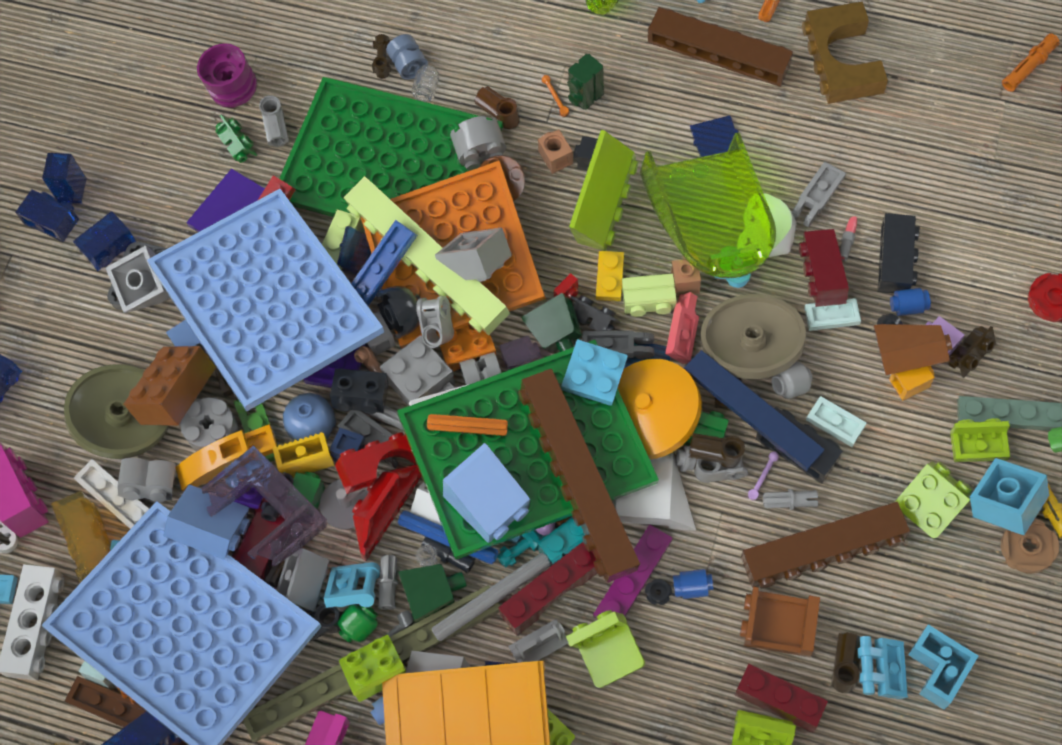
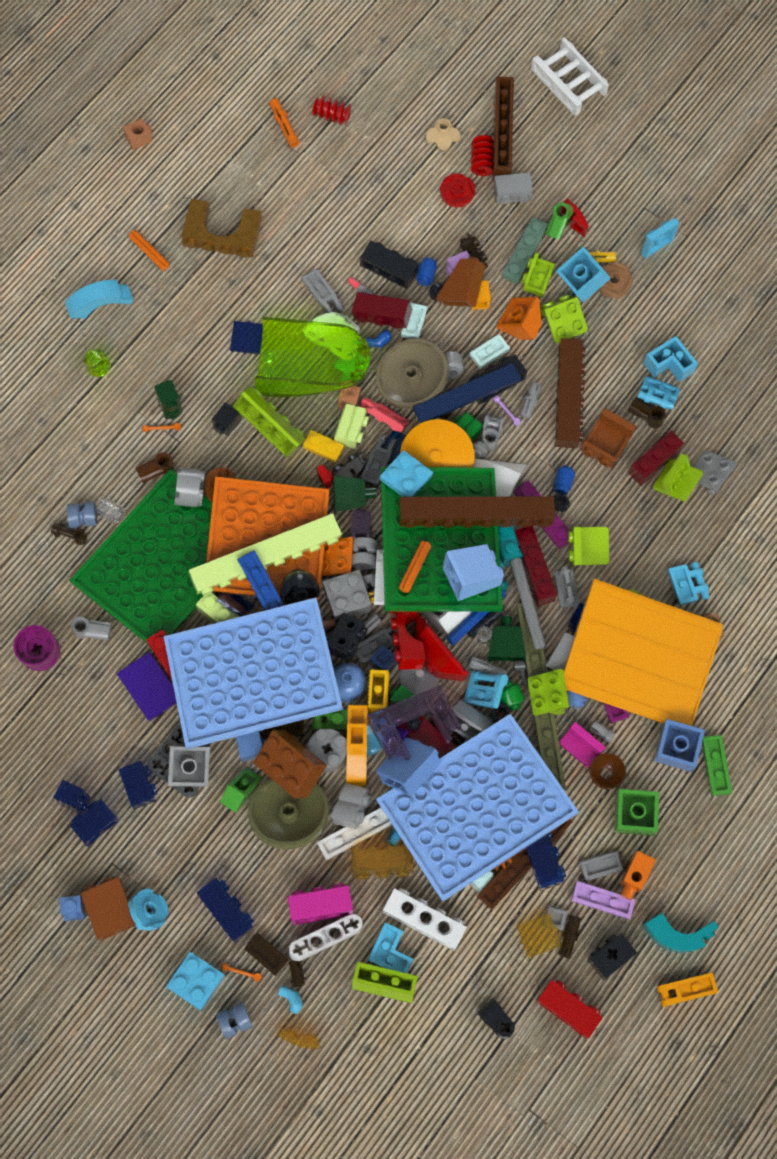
camera: 80 degrees left, 5 degrees up
(129, 349) = (240, 789): none -> bright green slope
(241, 144) = (83, 664): green hinge -> none
(435, 319) = (316, 565): light grey piece -> none
(476, 253) = (285, 517): light grey slope -> none
(557, 159) = (216, 448): nougat brick -> none
(713, 449) = (486, 425): dark brown piece -> none
(720, 46) = (177, 304): reddish brown brick -> none
(785, 285) = (381, 340): none -> blue arm
(904, 443) = (521, 318): none -> orange slope

